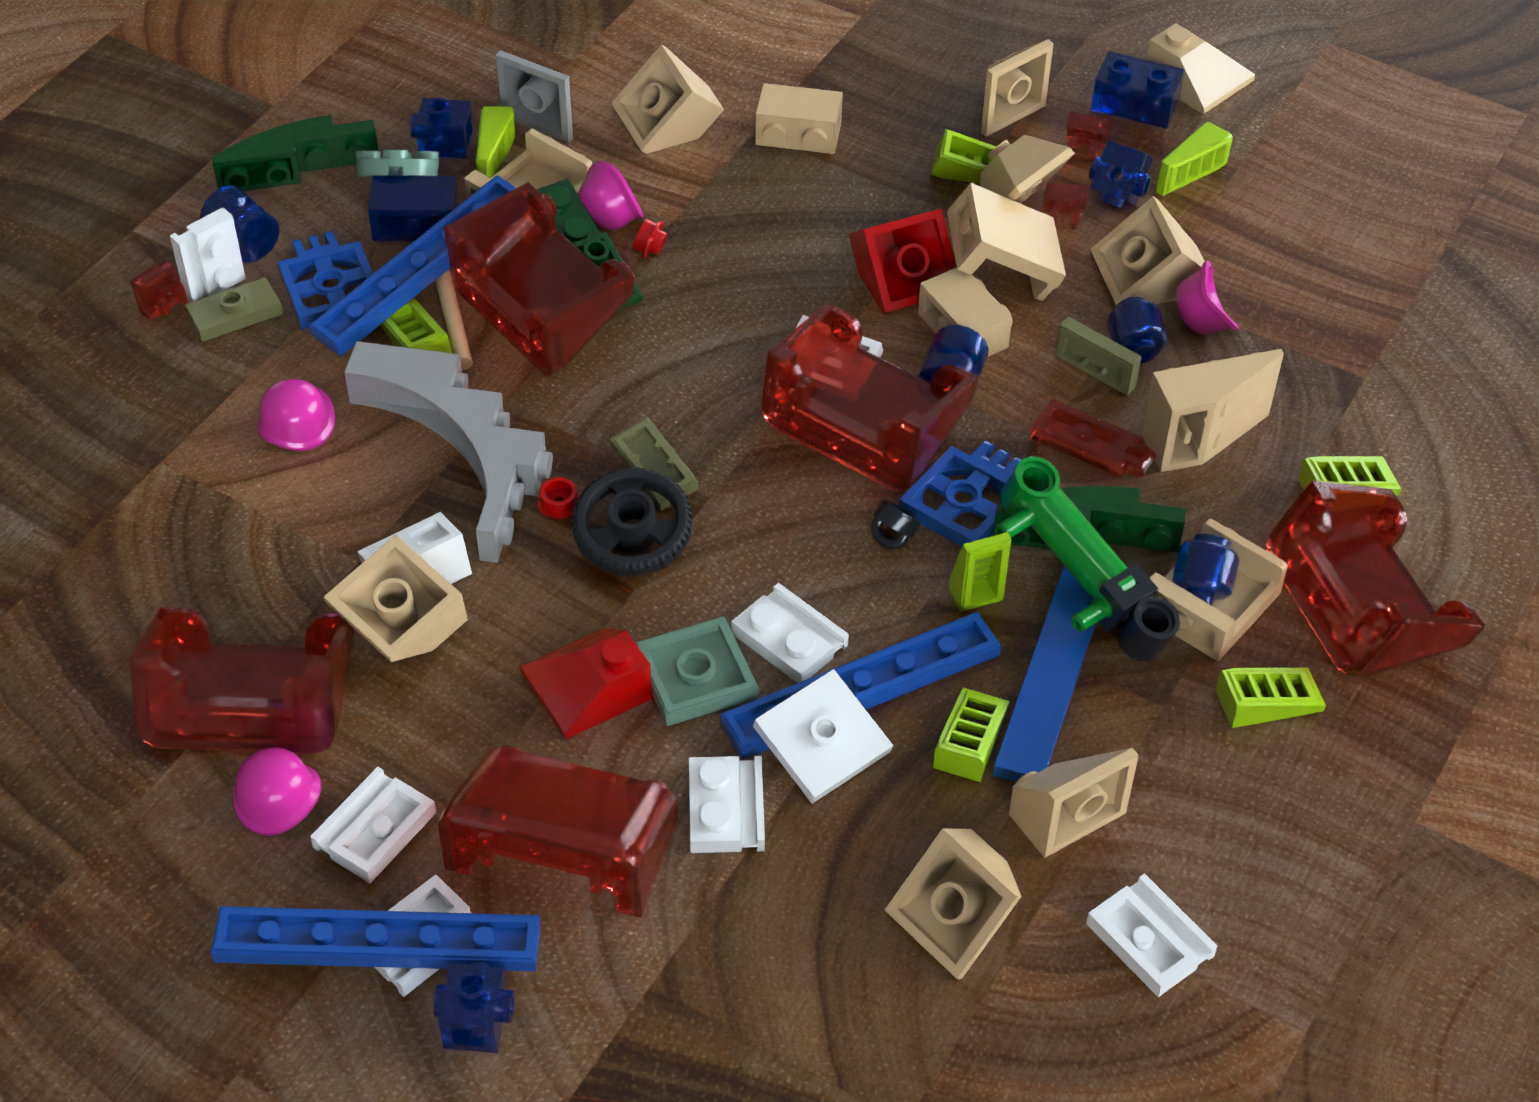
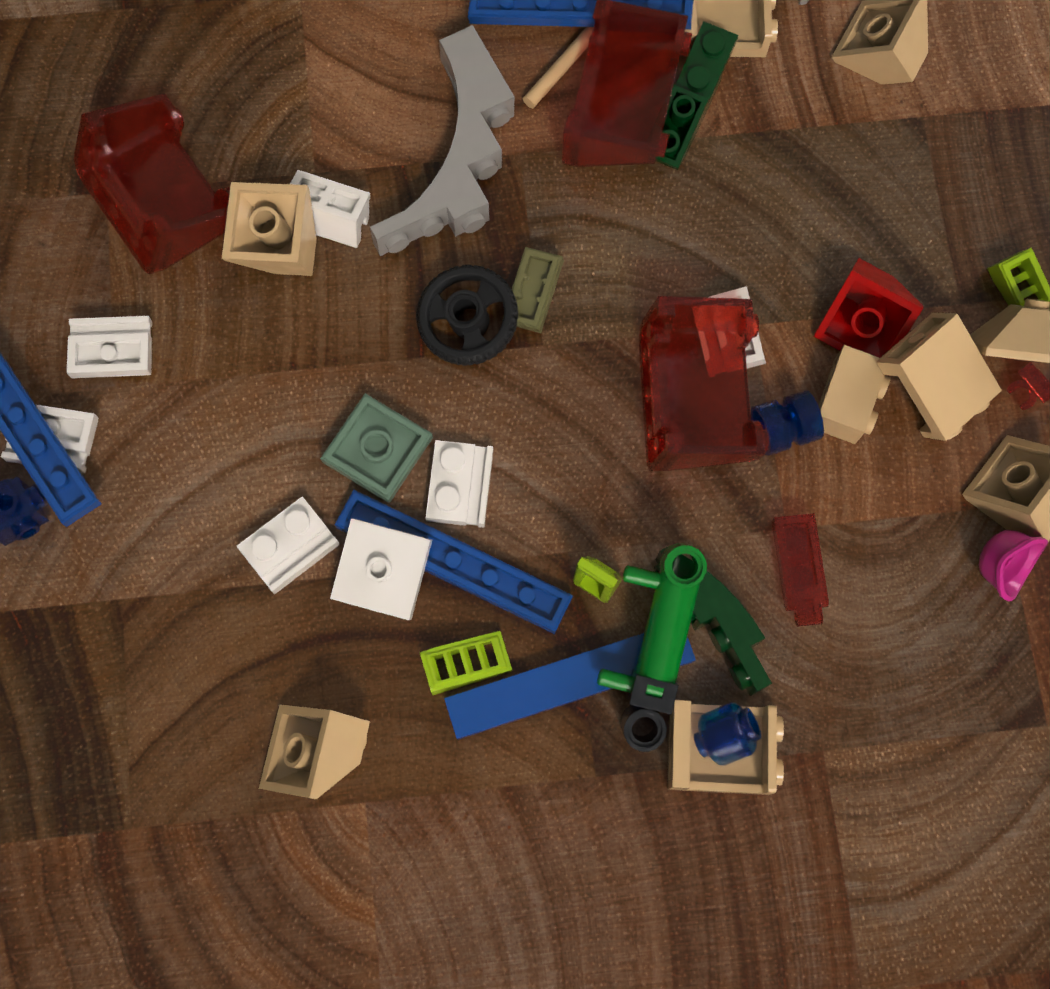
camera: 50 degrees right, 25 degrees up
(274, 791) = (95, 270): dark pink helmet -> none
(296, 415) = (395, 39): dark pink helmet -> none
(417, 334) = (517, 73): lime slope -> none
(557, 498) = (453, 244): red plate -> none
(561, 820) = (180, 460): clear red windscreen -> none
(590, 680) = (321, 385): red slope -> none
(608, 197) = (748, 76): dark pink helmet -> none
(650, 238) = (744, 129): red plate -> none
(798, 118) = (954, 137): tan brick -> none
(897, 519) = (609, 485): black tile -> none
(981, 473) = (713, 512): blue piece -> none
(1072, 798) = (440, 767): tan slope -> none
(1098, 355) = (890, 516): olive plate -> none
(1138, 327) = (938, 528): clear blue head -> none
(1151, 935) = (378, 897): white plate -> none
(1207, 407) = (883, 632): tan slope -> none
(1257, 709) = (630, 825): lime slope -> none
(1341, 467) = (885, 772): lime slope -> none
(1355, 584) = (813, 857): clear red windscreen -> none

